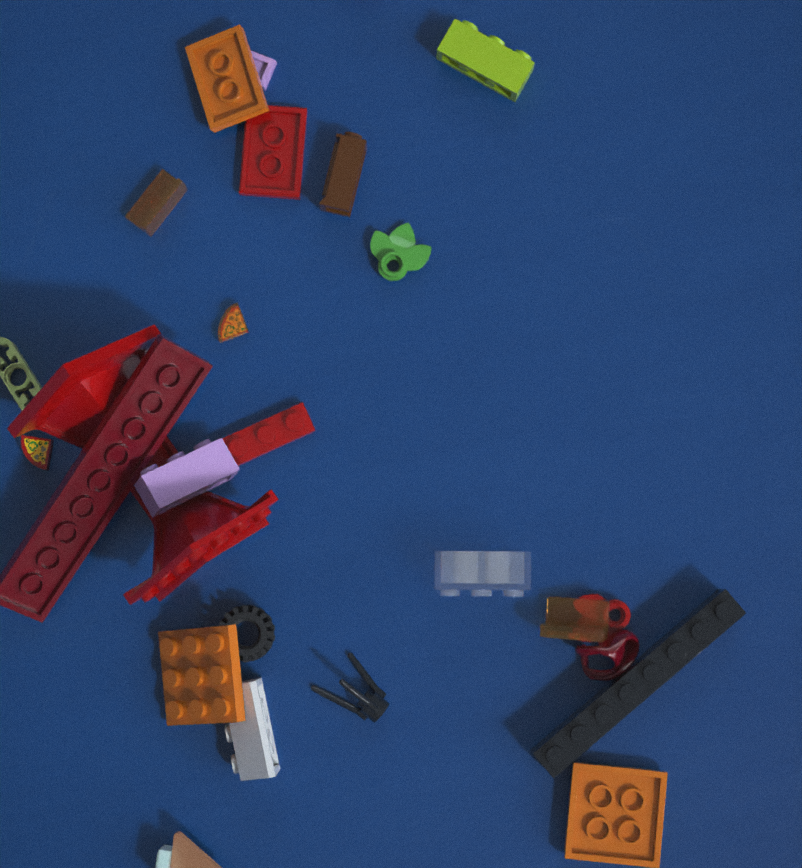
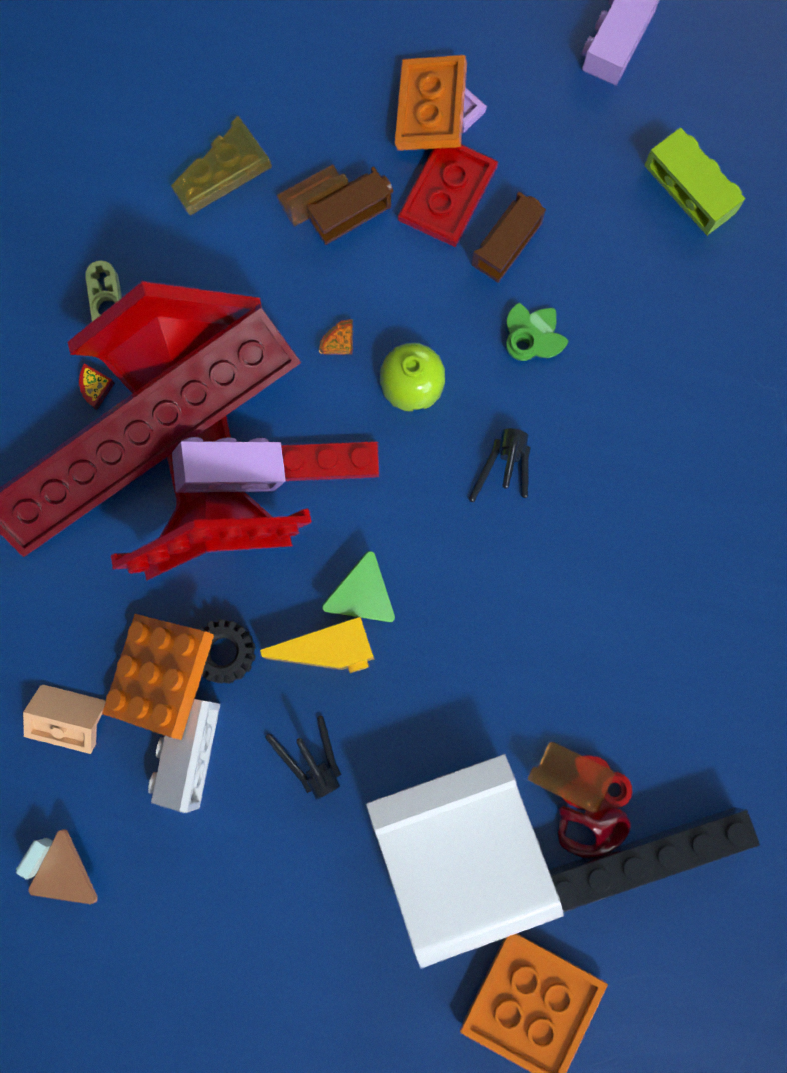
camera: 20 degrees right, 5 degrees down
(68, 208) = (225, 167): none -> clear yellow wing
(136, 742) = (63, 718): none -> light nougat panel
(194, 201) = (350, 206): none -> reddish brown window
(309, 333) = (412, 376): none -> lime cylinder
(336, 593) = (332, 647): none -> yellow slope
(342, 537) = (362, 593): none -> piece
(419, 360) = (512, 448): none -> black plant
(482, 572) = (493, 686): clear brick -> none
(512, 722) = (464, 861): none -> white panel

